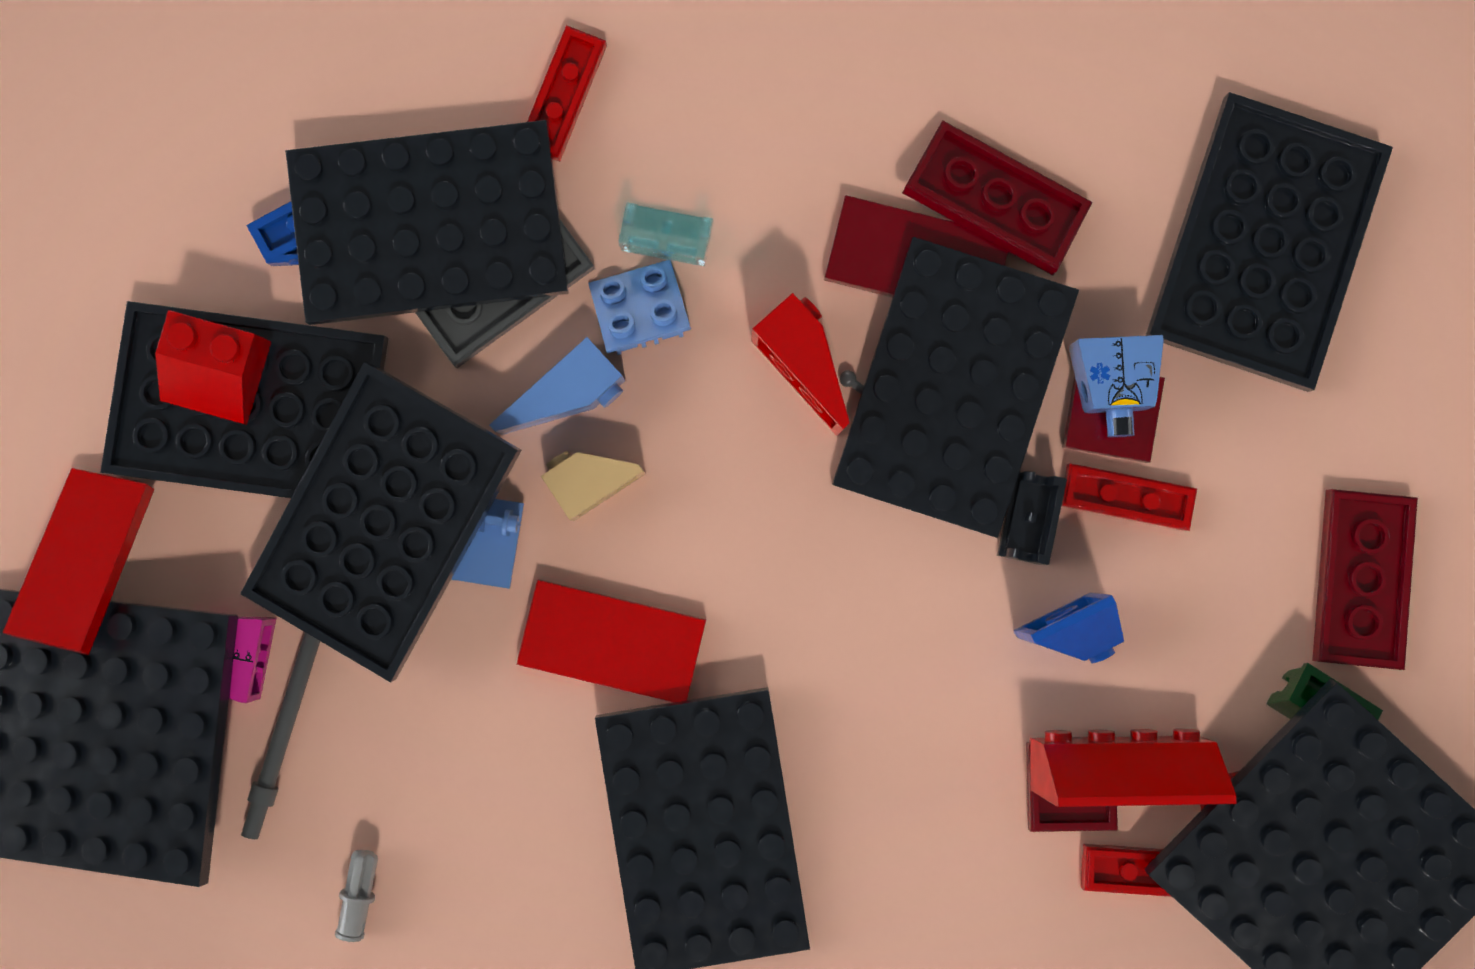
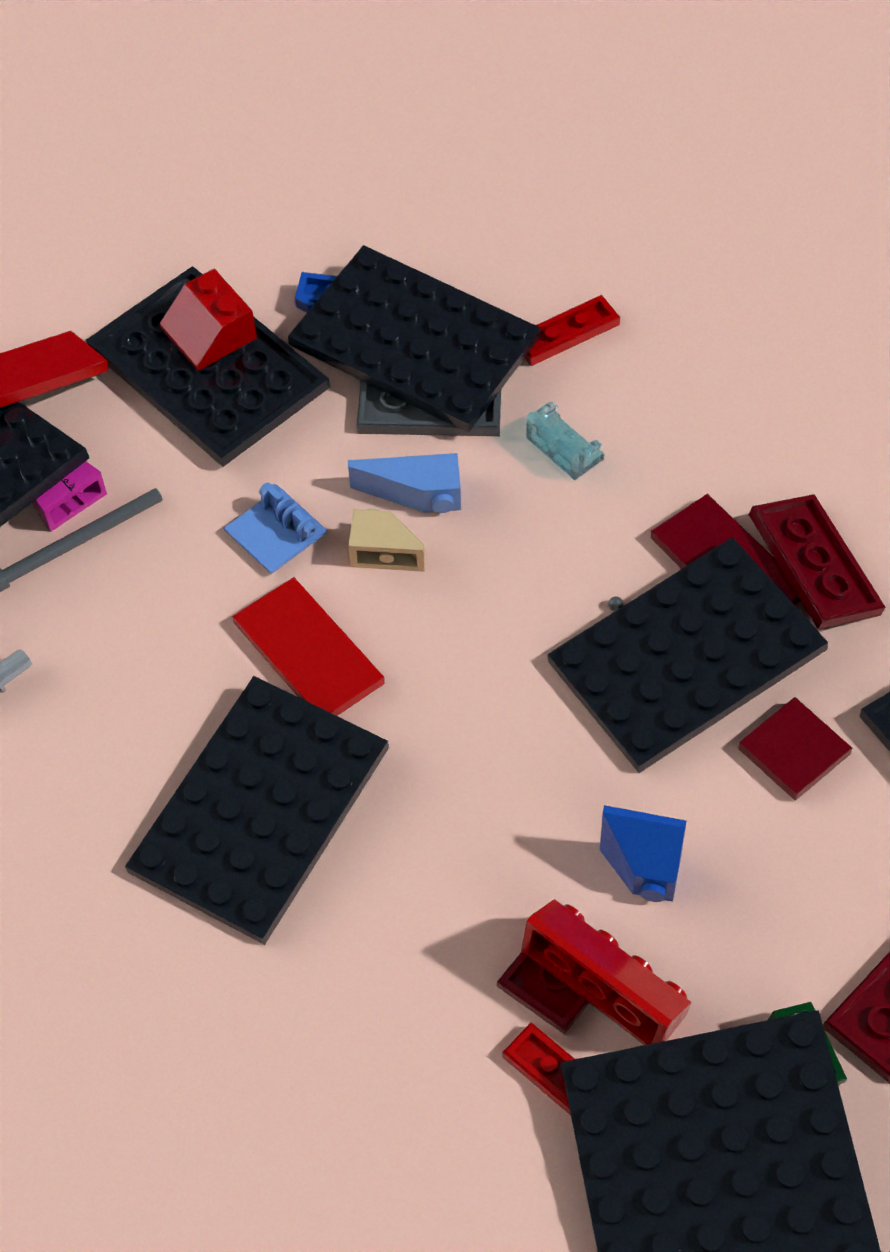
camera: 45 degrees right, 30 degrees down
(380, 521) = (227, 466): black plate -> none
(639, 307) = (512, 468): medium blue hinge -> none
(800, 352) = (593, 547): red slope -> none
(1032, 518) = (676, 772): black hinge -> none
(1117, 377) = (813, 712): medium blue torso -> none
(1129, 497) = (762, 811): red tile -> none

